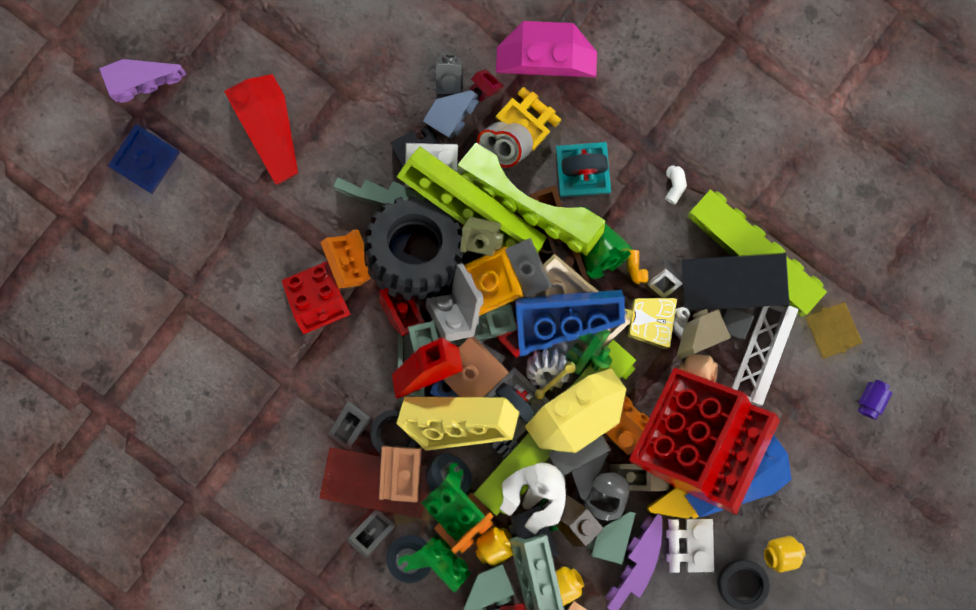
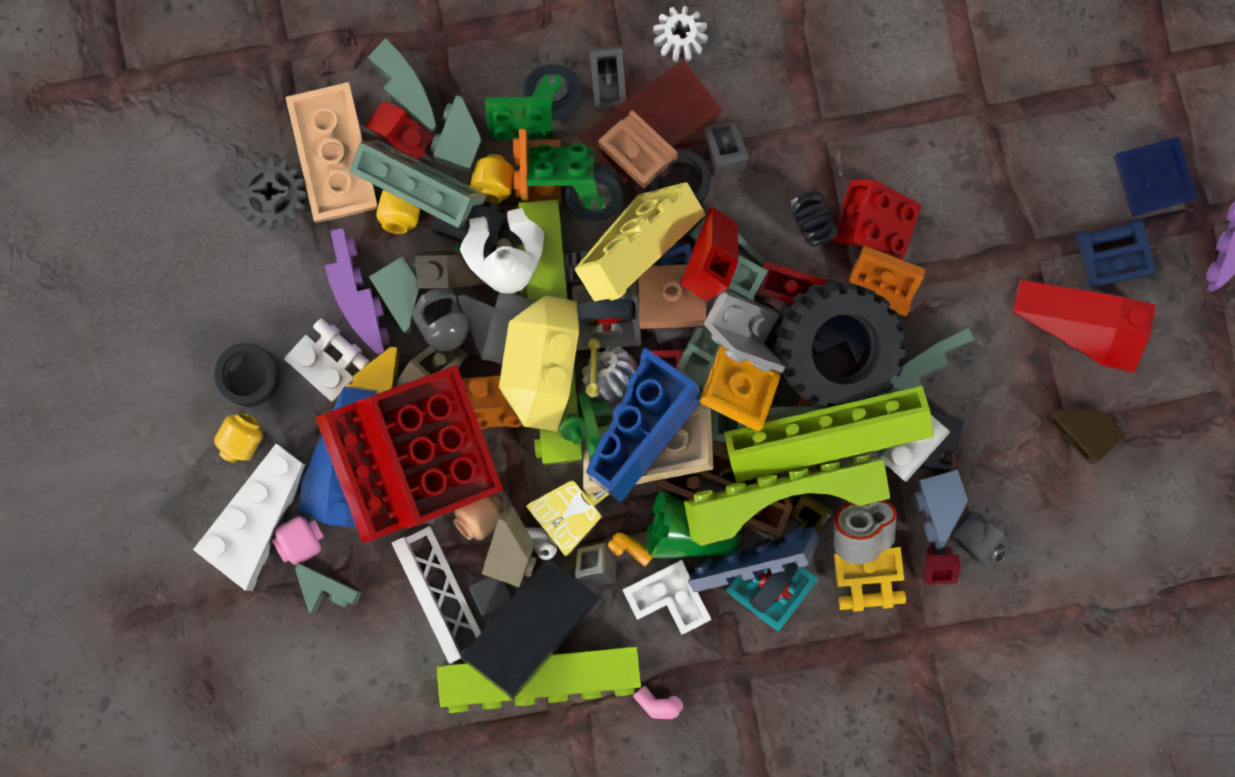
camera: 135 degrees right, 0 degrees up
(216, 136) = (1119, 263): none -> dark blue plate
(295, 516) = (673, 42): none -> white gear
(332, 68) = (1088, 431): none -> dark brown slope
(347, 333) = (814, 218): none -> black gear
(481, 236) = (792, 413): olive brick -> none
(528, 267) = (721, 431): dark grey plate -> none
(532, 179) = (806, 514): none -> dark brown slope
(546, 50) = (921, 659): dark pink wedge -> none
(574, 182) = (795, 546): none -> dark blue wing
(637, 222) = (671, 589): none -> white plate
(678, 181) = (675, 666): white arm -> none
(710, 171) = (658, 708): none -> bright pink arm
(810, 463) = (297, 540): none -> bright pink head
(822, 429) = (316, 584): none -> sand green slope
(831, 498) = (245, 529): none -> white wedge
(833, 330) = (398, 684): clear yellow piece -> none
(874, 399) = (298, 658): dark purple brick -> none

